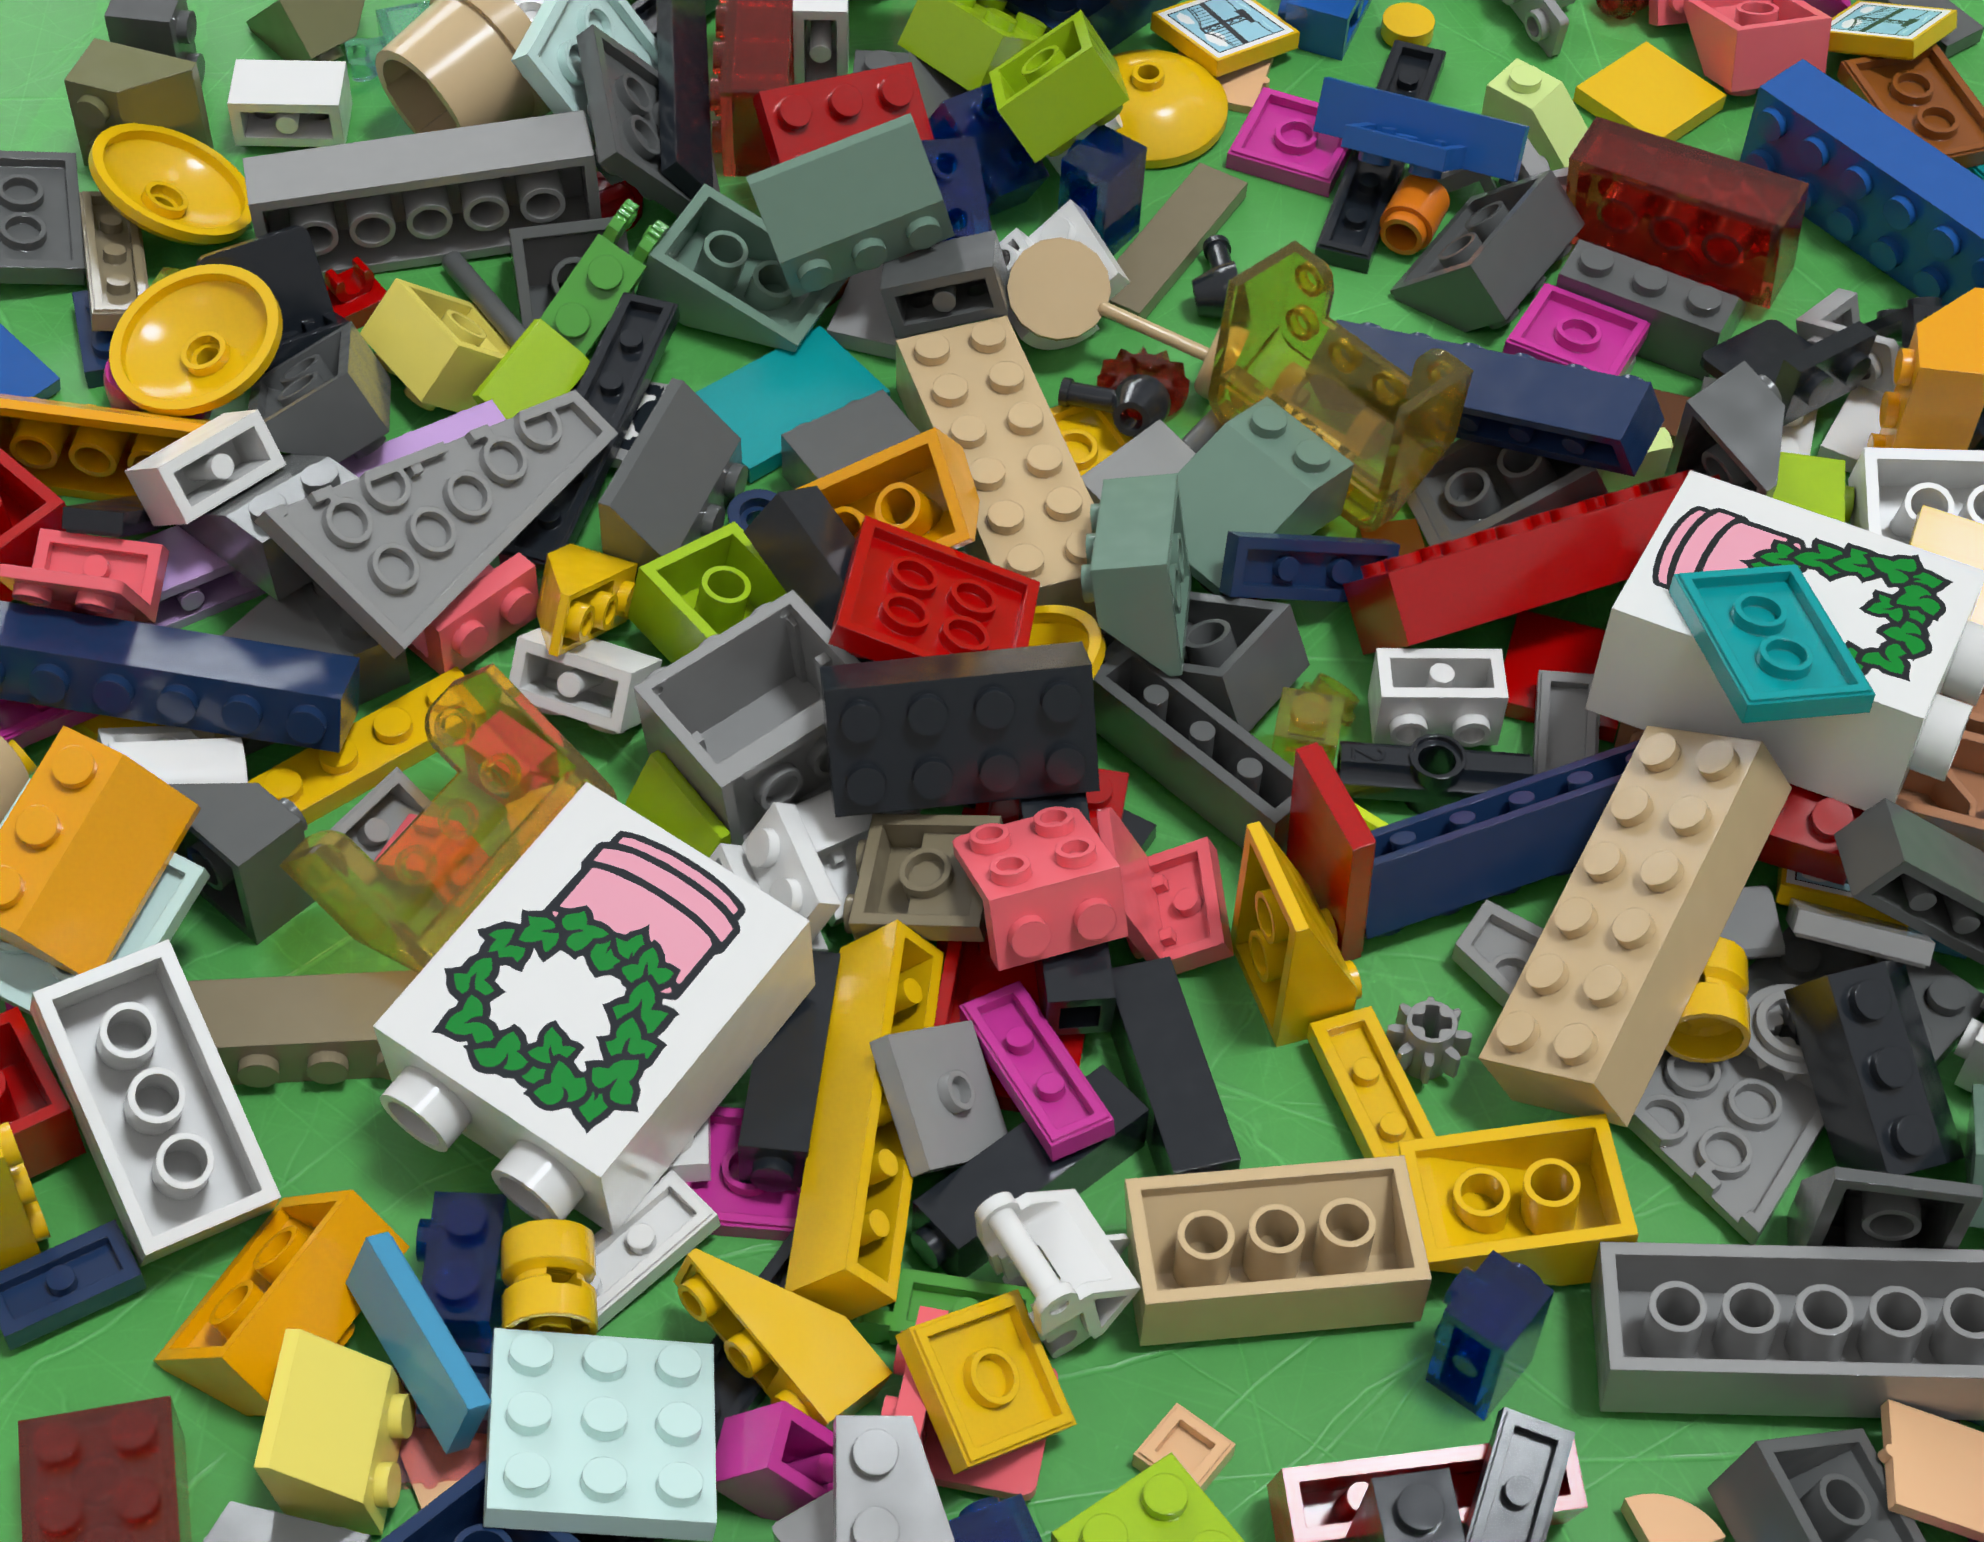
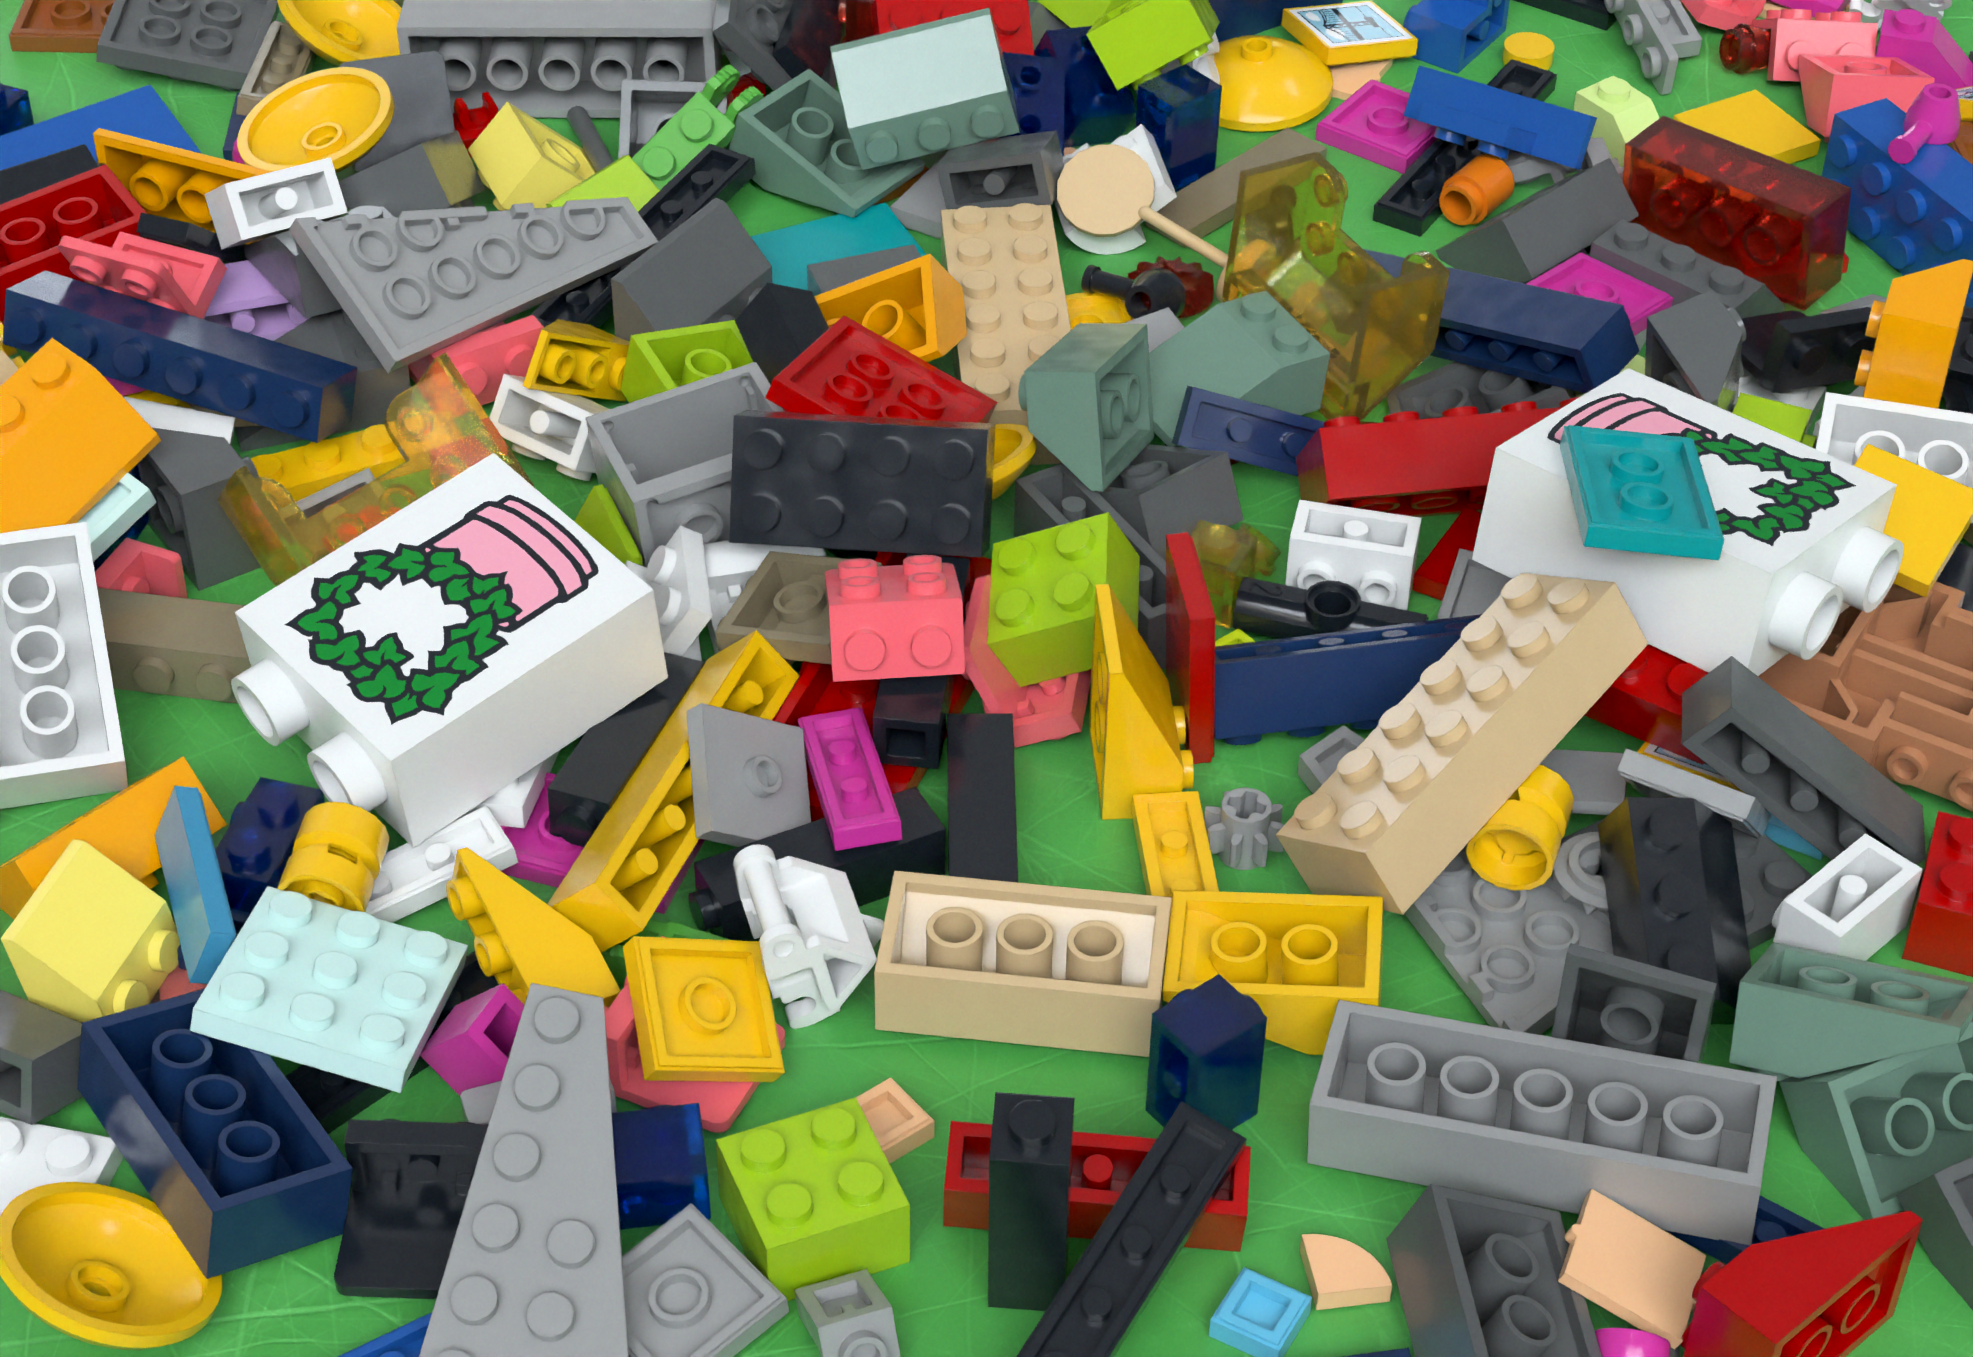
camera: 15 degrees right, 10 degrees down
(207, 942) = (143, 569): none -> coral bracket
(1184, 817) = (1047, 595): none -> lime brick
(1856, 86) = (1930, 119): none -> dark pink bar

